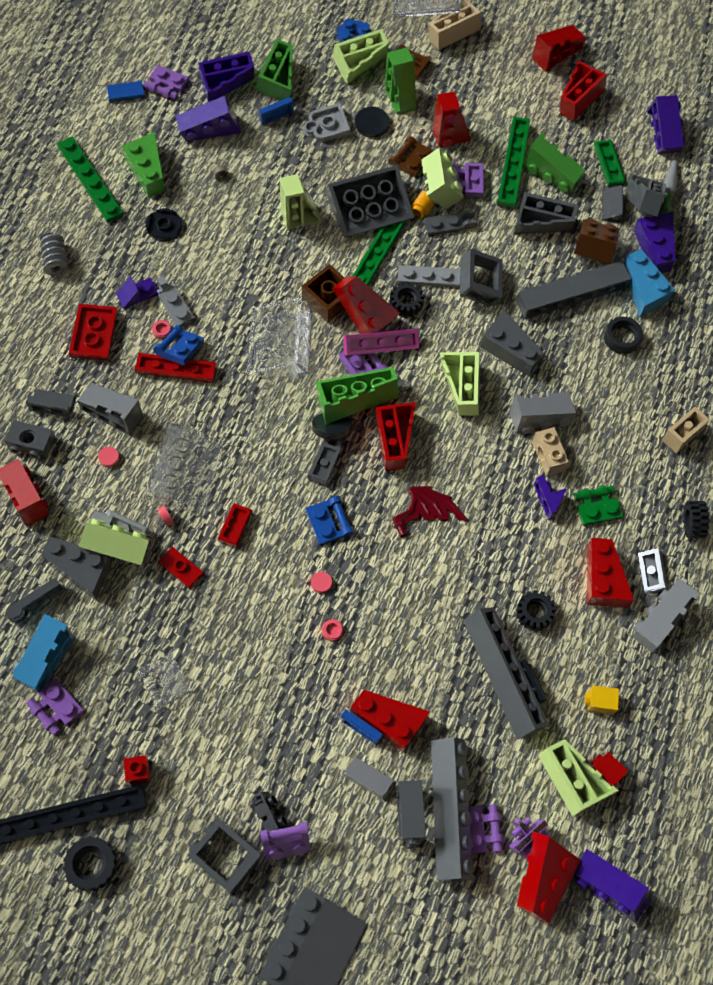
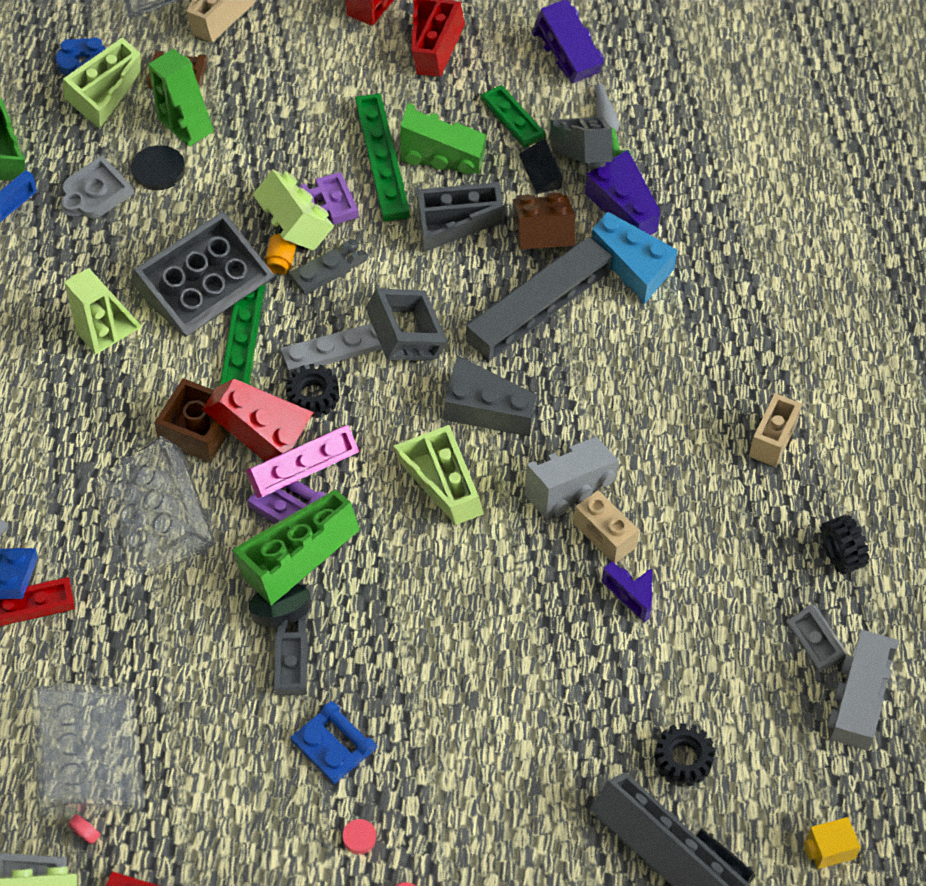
camera: 20 degrees left, 10 degrees down
(235, 525) = (195, 803): red plate -> none
(394, 433) = (376, 582): red wedge -> none
(413, 164) = (242, 202): reddish brown plate -> none
(429, 505) = (466, 665): dark red animal -> none
(449, 122) = (271, 130): red wedge -> none
(598, 511) = (708, 584): green plate -> none
(605, 576) = (758, 668): red wedge -> none
(616, 346) = (632, 352): black tyre -> none

